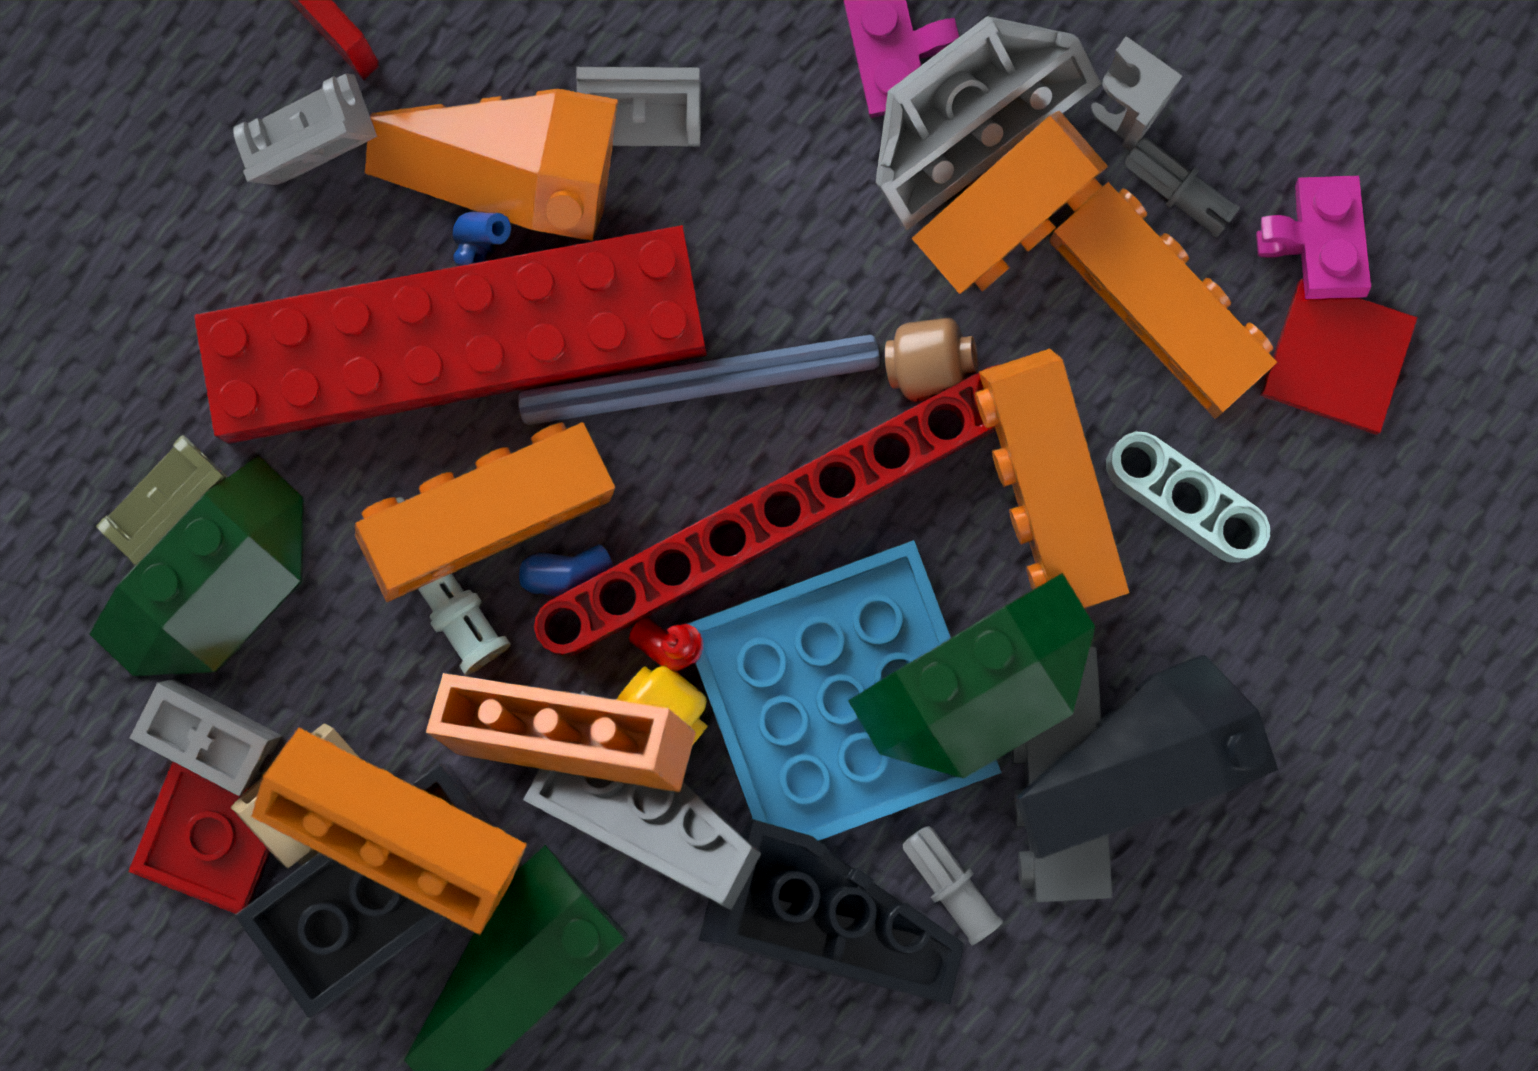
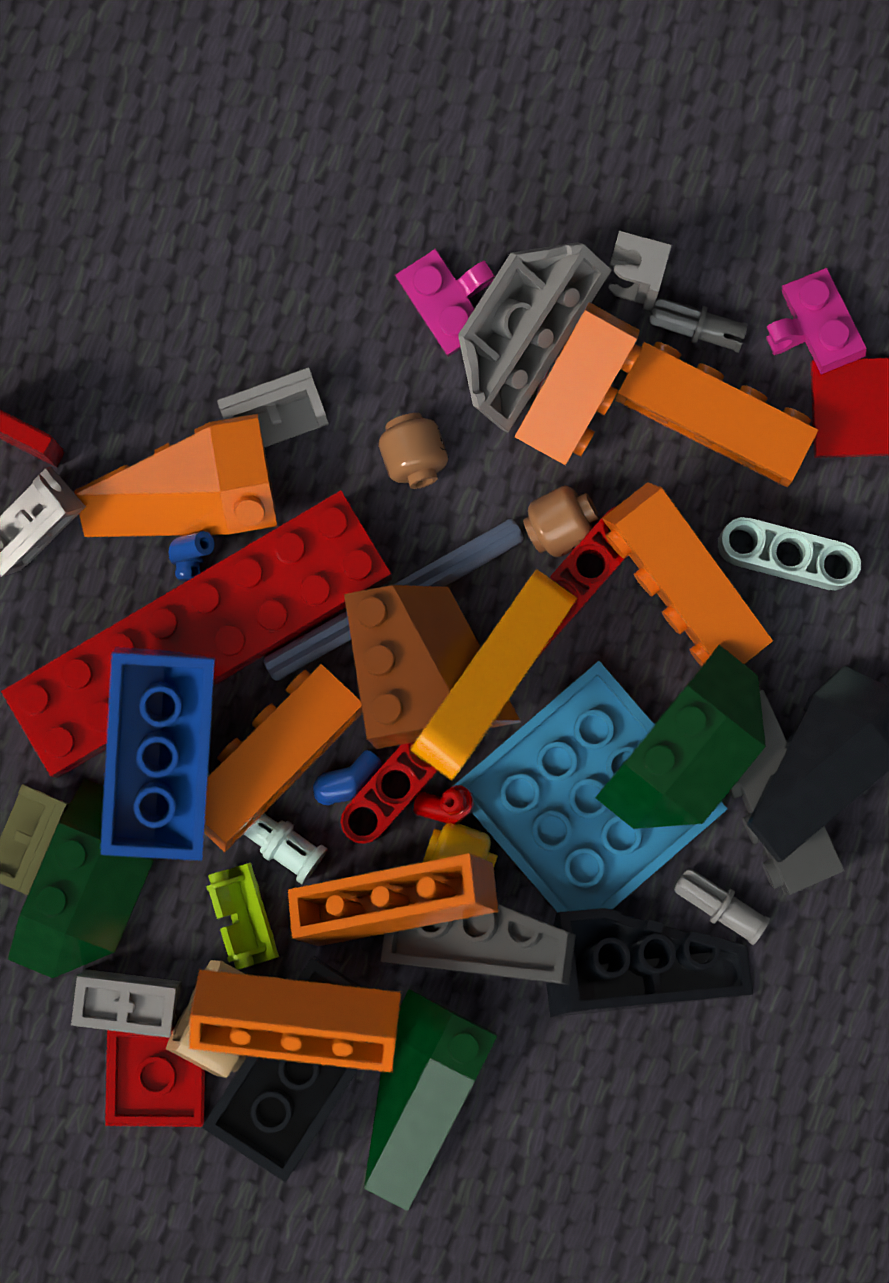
camera: 25 degrees left, 0 degrees up
(343, 453) = (157, 754): none -> blue slope
(381, 712) = (238, 895): none -> lime hinge
(697, 468) = (408, 658): none -> dark orange wedge
(777, 507) = (493, 674): none -> light orange beam
(787, 211) = (413, 450): none -> medium nougat head

